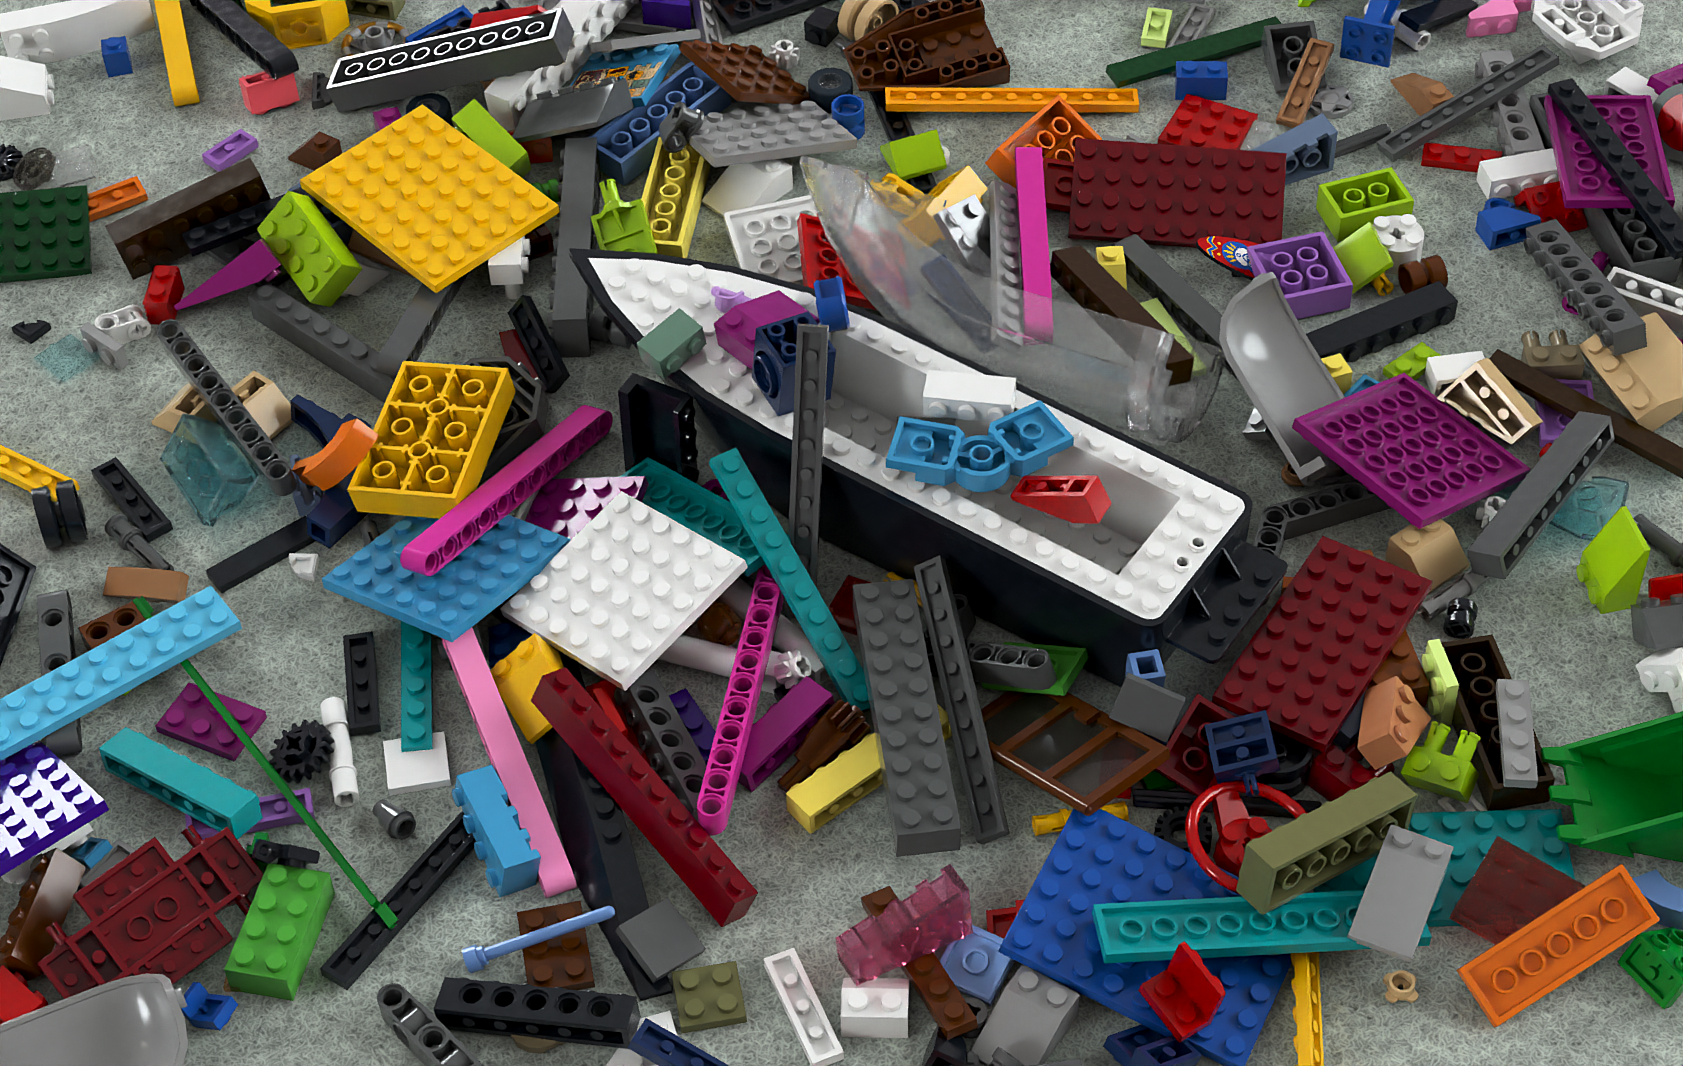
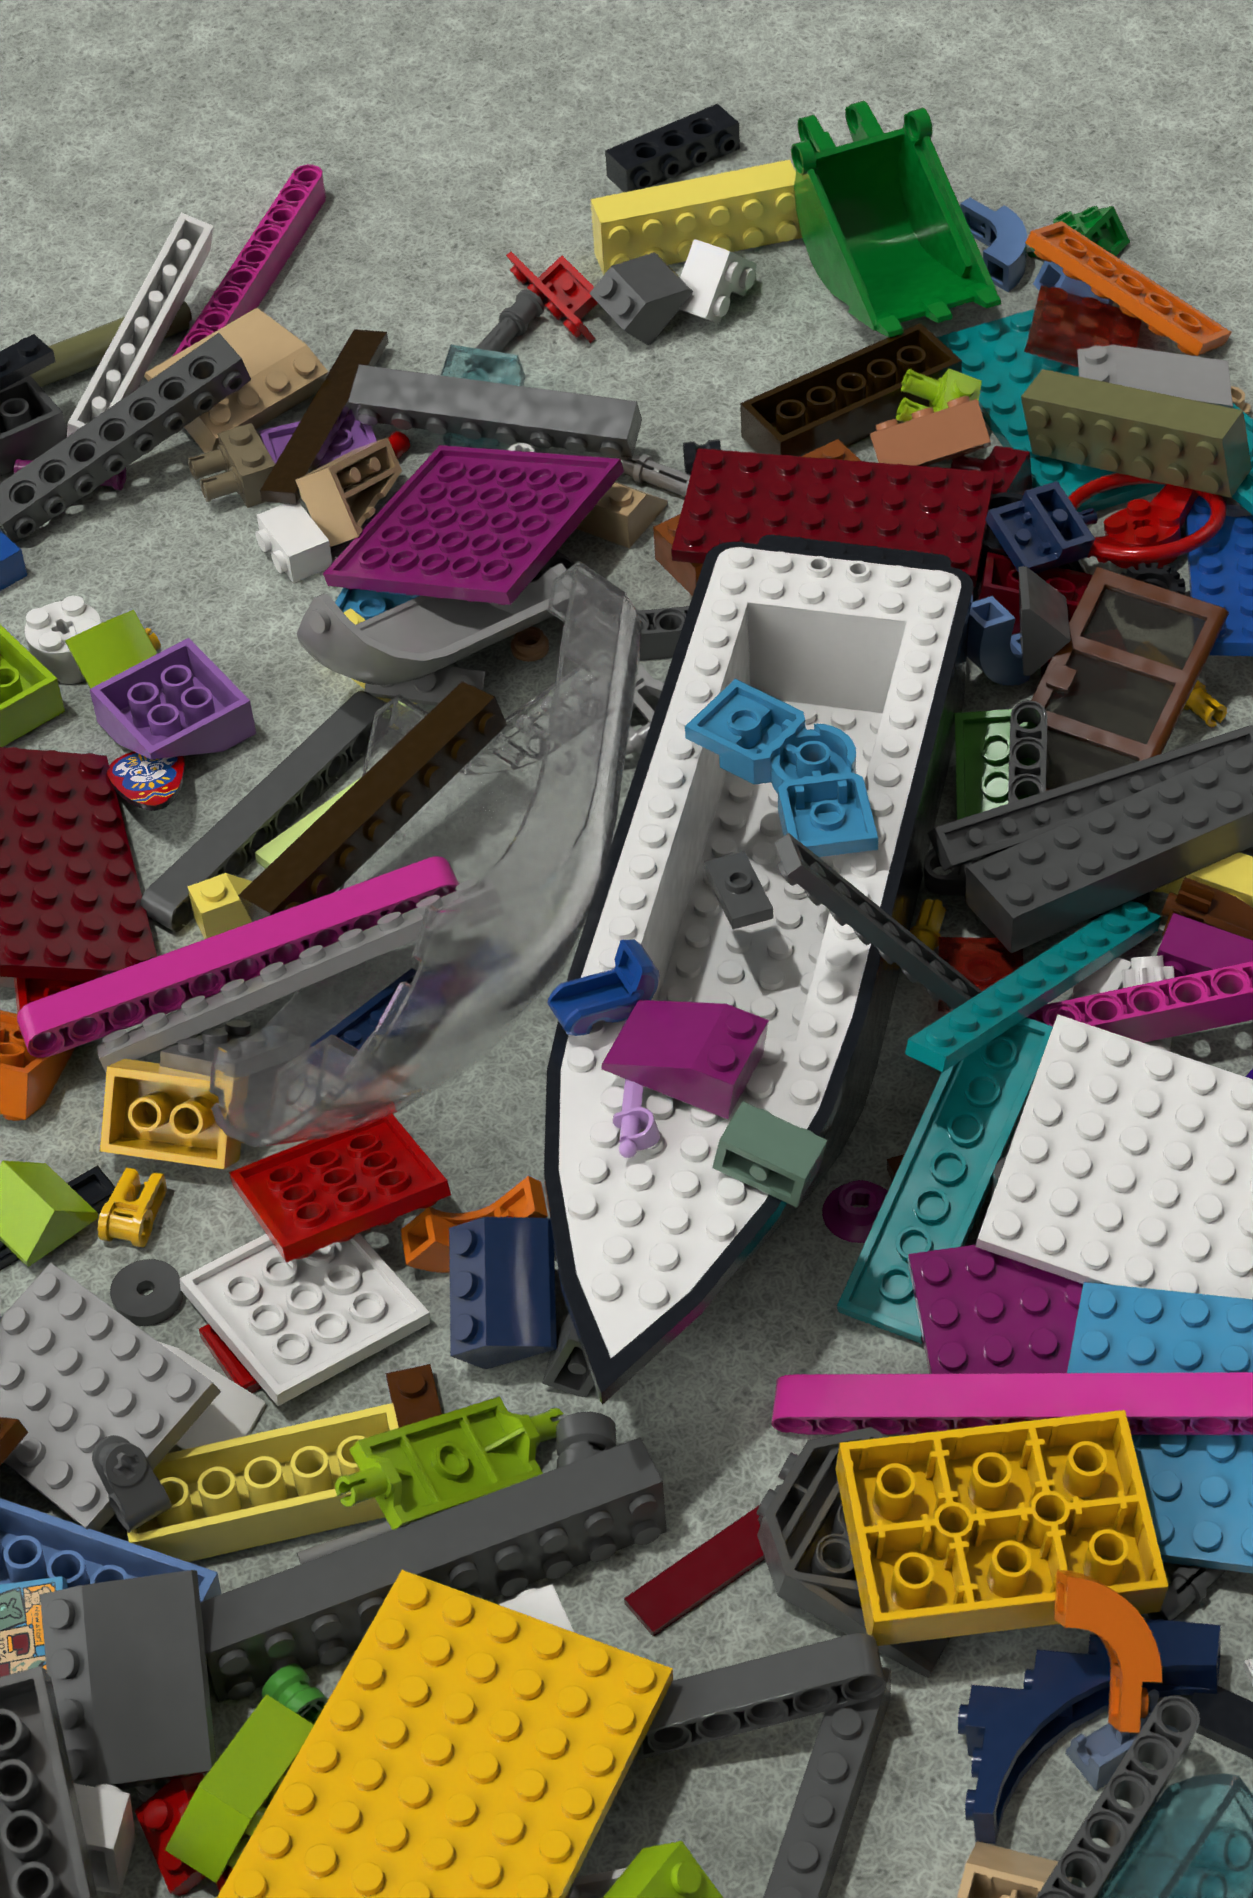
camera: 110 degrees left, 0 degrees up
(538, 344) = (674, 1538): black plate -> none
(658, 425) = (835, 1241): black panel -> none
(776, 361) = (769, 964): dark blue brick -> none
(968, 396) = (703, 809): white brick -> none
(1066, 497) = (828, 672): red slope -> none
(1386, 323) = (231, 625): black brick -> none
(1411, 362) = (280, 591): lime plate -> none
(1417, 274) = (116, 594): reddish brown wheel -> none
(1442, 682) = (828, 422): yellowish green plate -> none
(1516, 733) = (879, 353): light grey plate -> none
(1614, 564) = (578, 336): lime slope -> none

